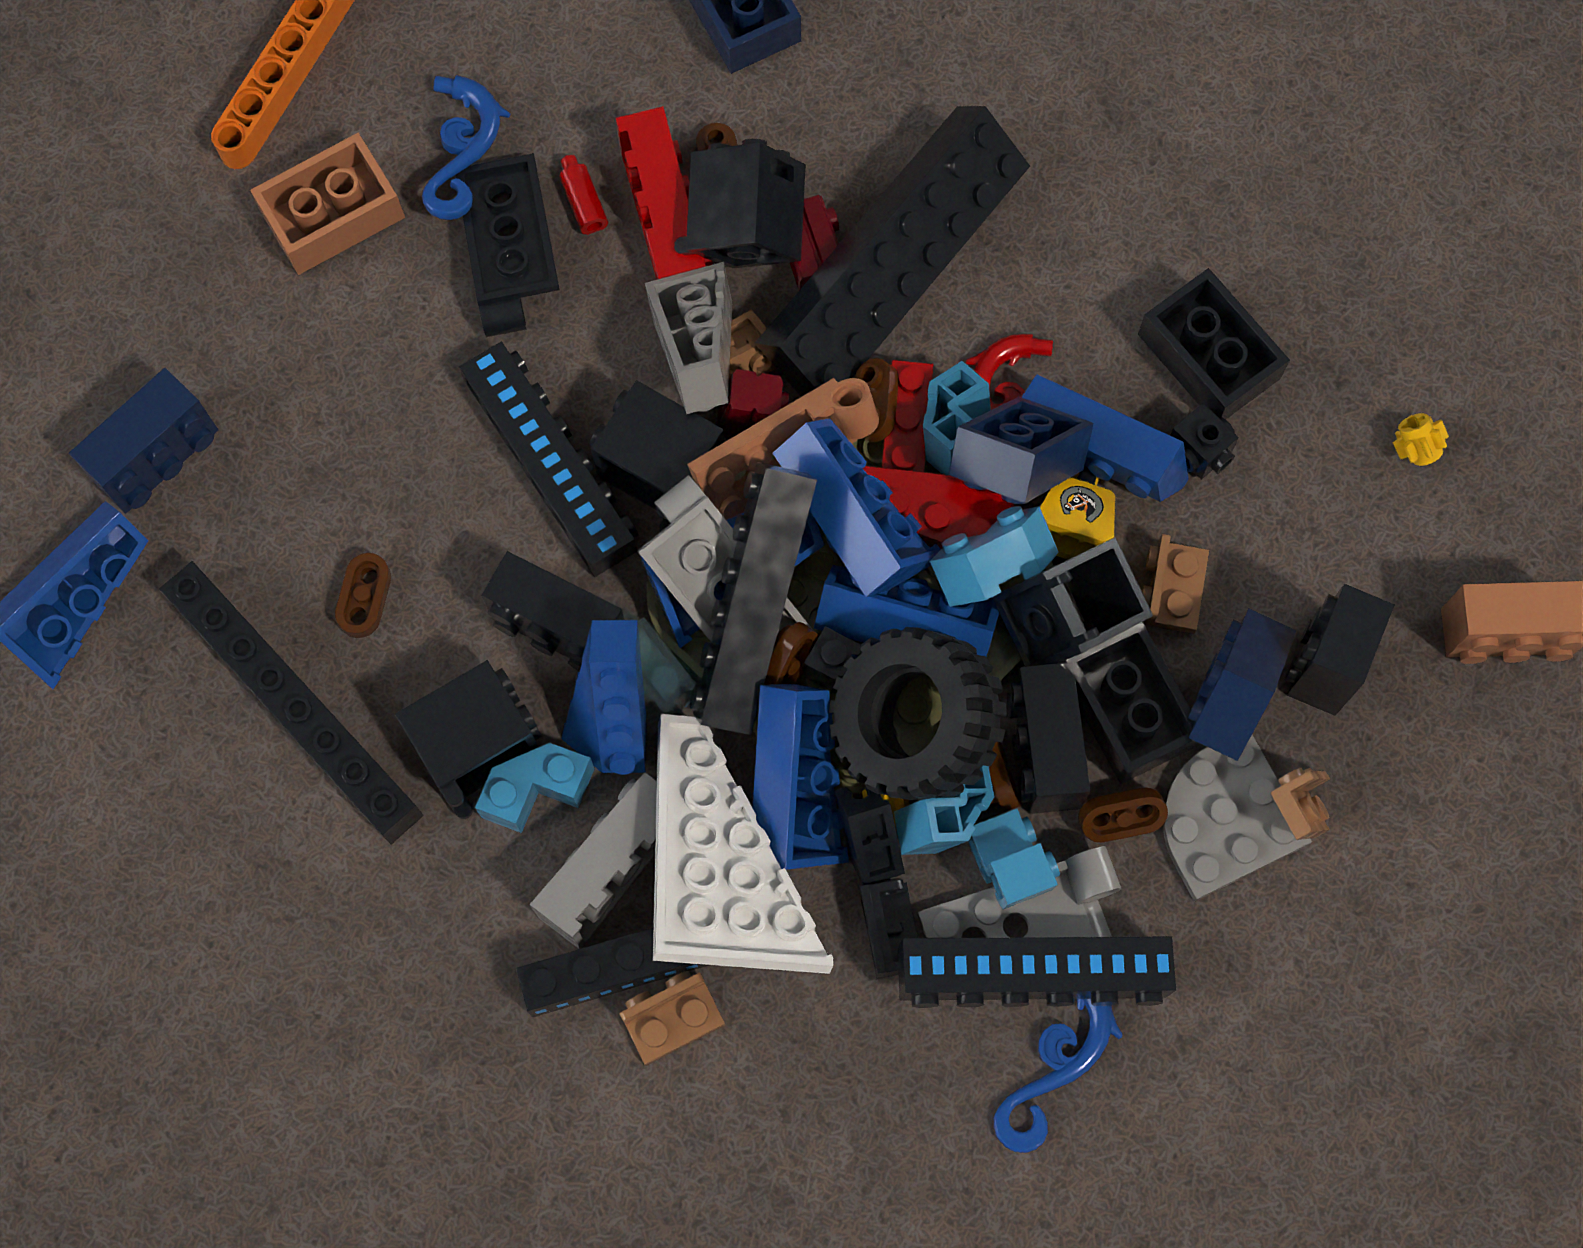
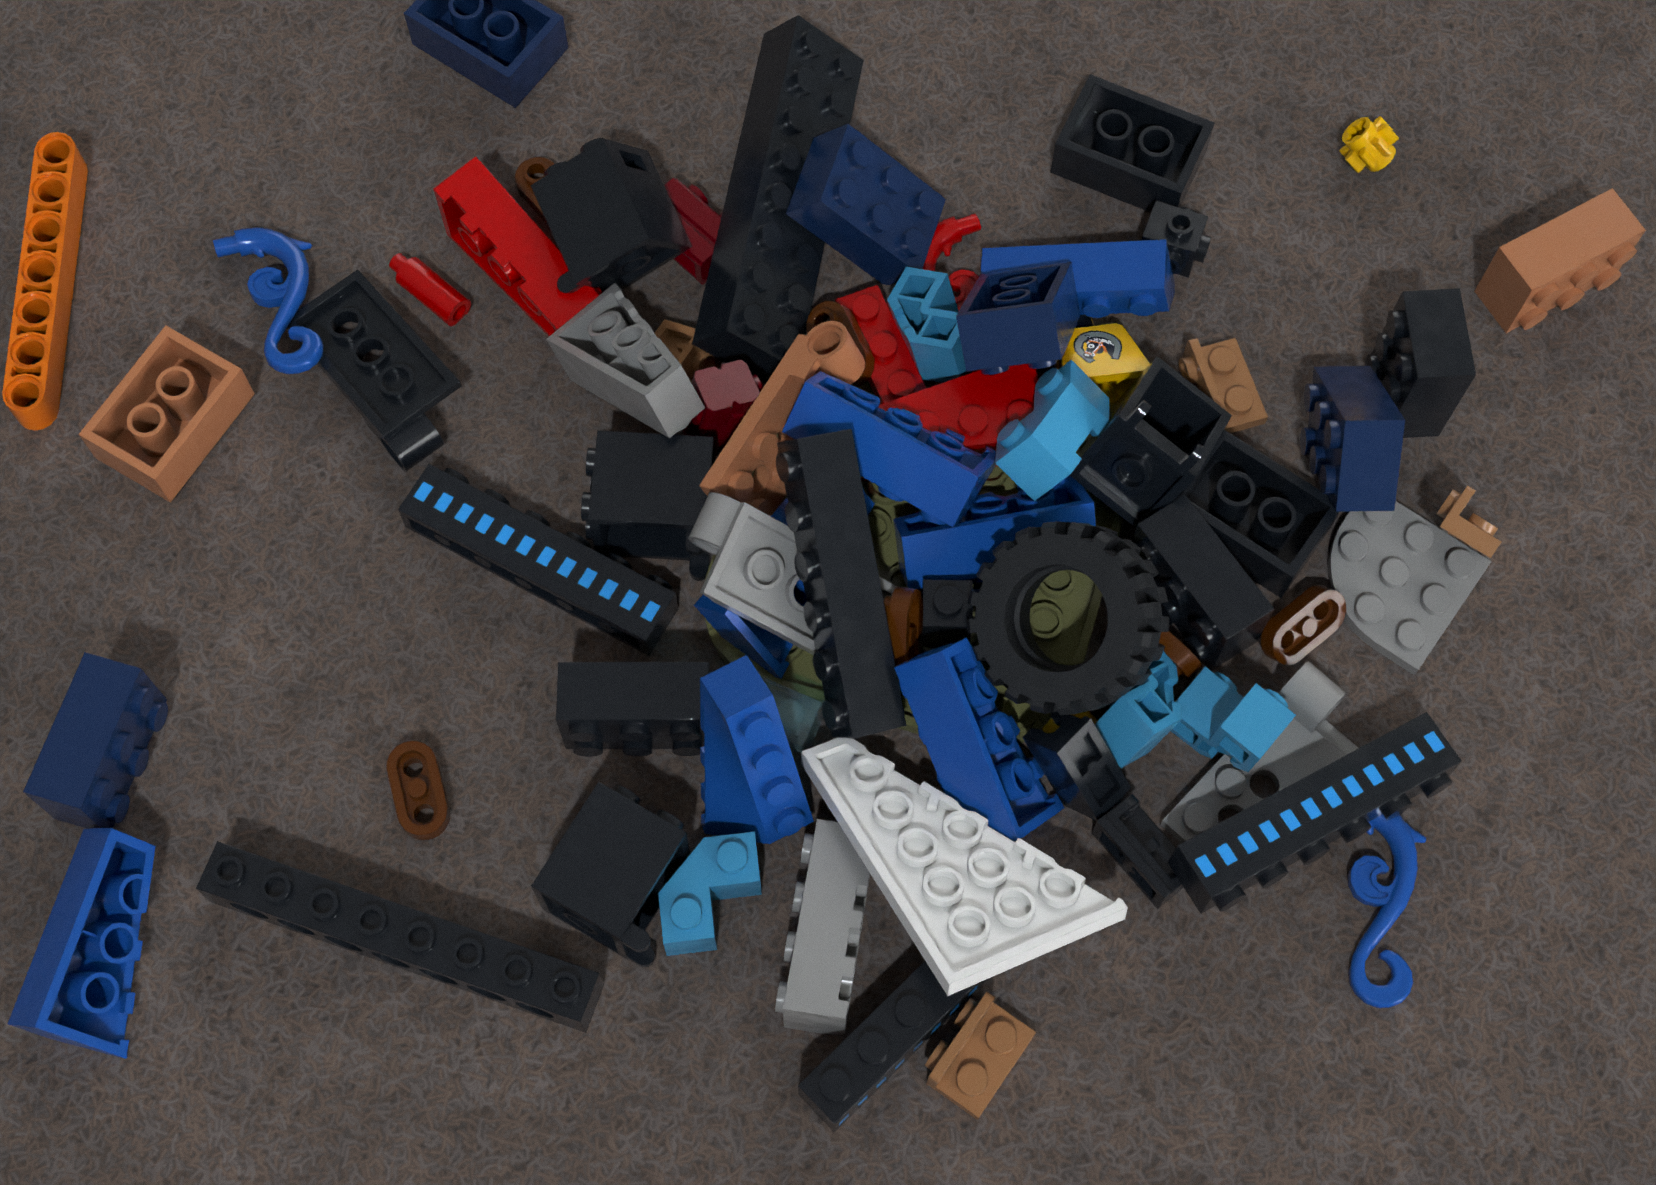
camera: 30 degrees left, 5 degrees down
(957, 293) = (865, 204): none -> dark blue brick

